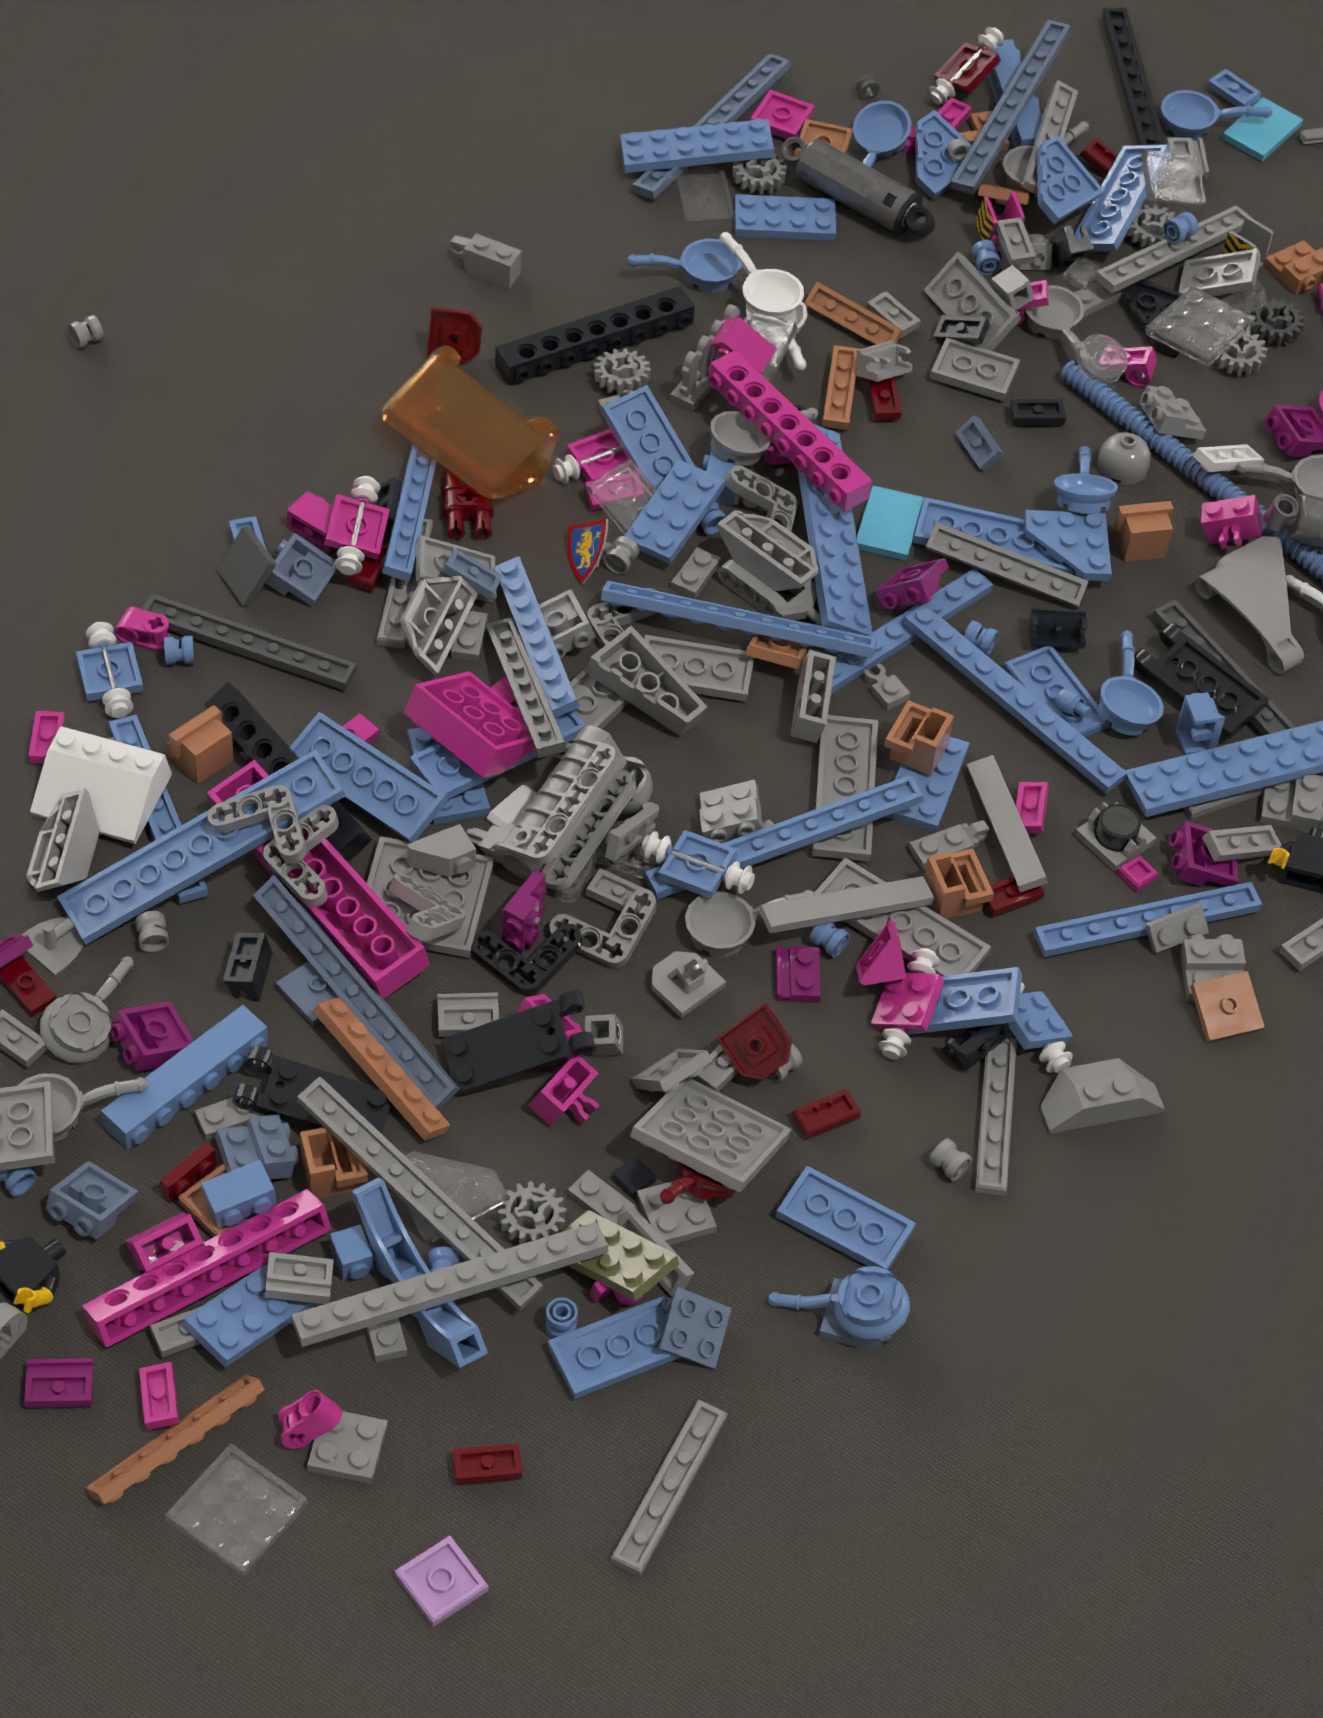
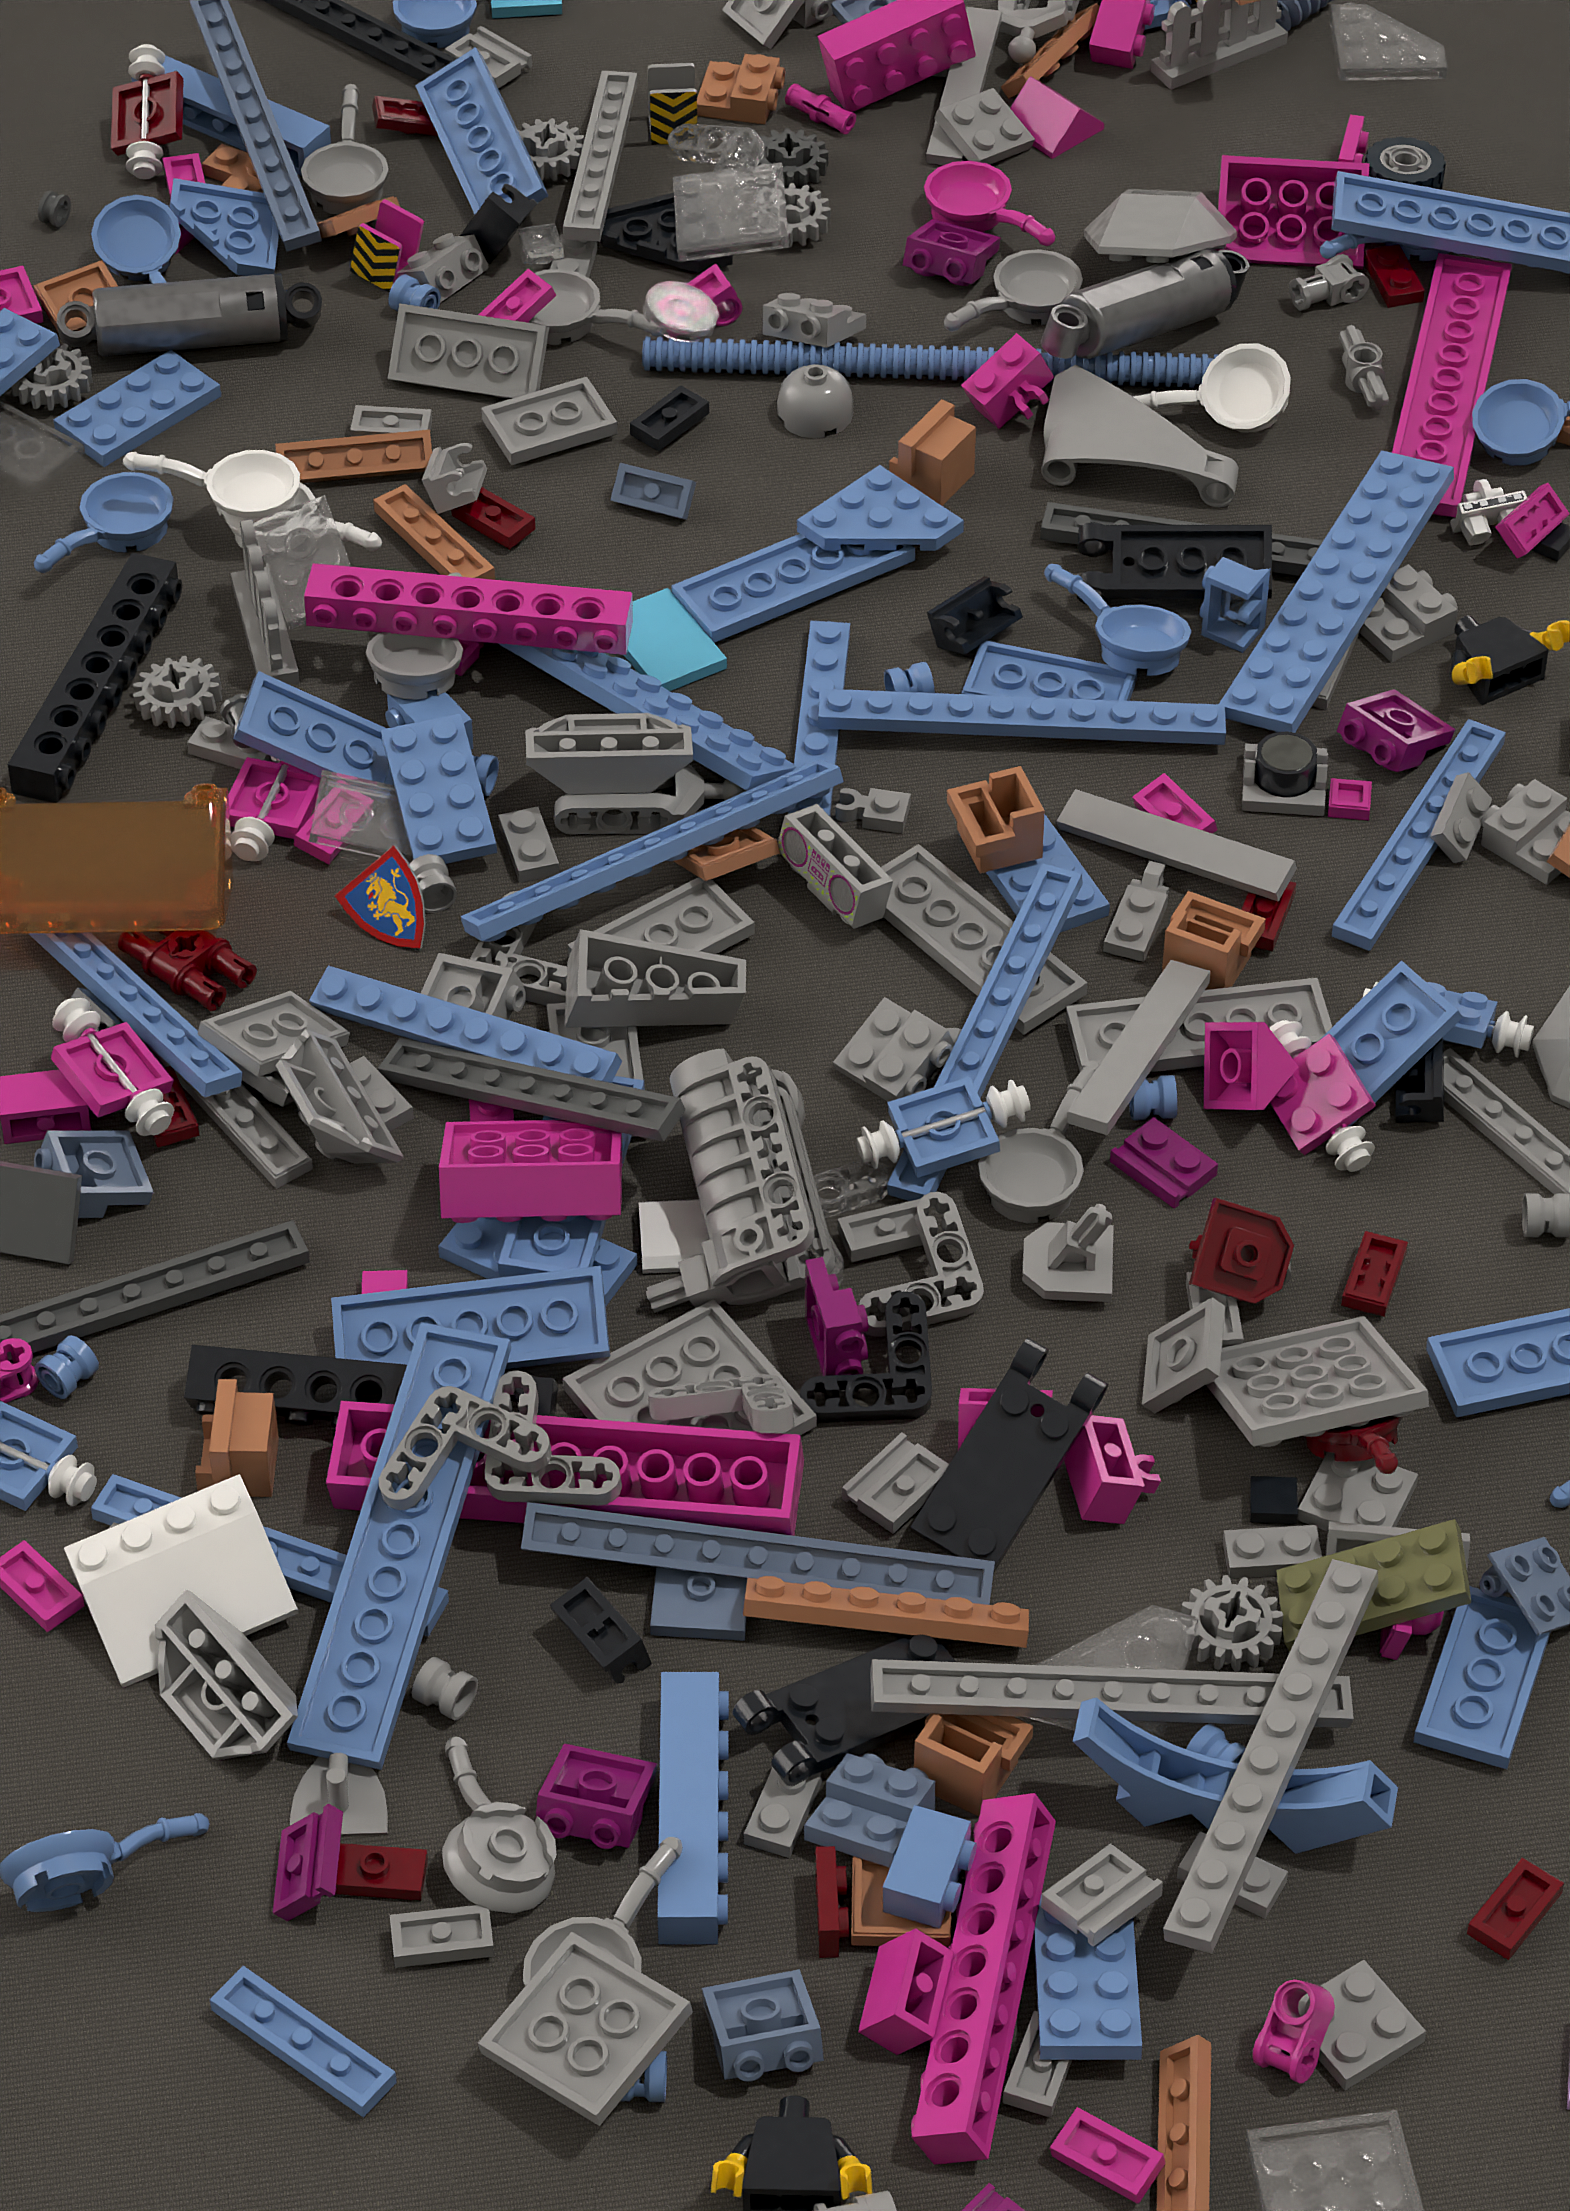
camera: 40 degrees left, 5 degrees down
(351, 1253) = (1106, 1819): medium blue brick -> none
(443, 852) = (667, 1332): light grey slope -> none
(477, 575) = (325, 1017): sand blue plate -> none
(567, 1318) = (1397, 1699): medium blue wheel -> none
(607, 1034) = (1066, 1371): light grey brick -> none
(631, 832) = (828, 1149): light grey plate -> none
(740, 336) = (292, 550): dark pink brick -> none
(781, 507) = (504, 704): light grey beam -> none
(911, 585) = (781, 679): magenta plate -> none
(958, 149) = (250, 202): light grey hinge -> none
(962, 328) = (488, 386): black plate -> none
(1006, 565) = (844, 590): light grey plate -> none
(1013, 287) = (506, 297): light grey brick -> none
(1015, 241) = (440, 254): light grey plate -> none
(1053, 123) = (339, 125): light grey plate -> none
(1063, 181) = (413, 158): medium blue plate -> none
(1071, 703) = (1084, 678): medium blue cylinder -> none
(1084, 491) = (831, 457): medium blue piece -> none
(1173, 178) = (516, 81): clear tile -> none
(1179, 228) = (591, 124): medium blue wheel -> none
(1222, 273) = (682, 145): light grey plate -> none
(1225, 457) = (923, 325): white plate -> none
(1241, 842) = (1417, 687): light grey plate -> none

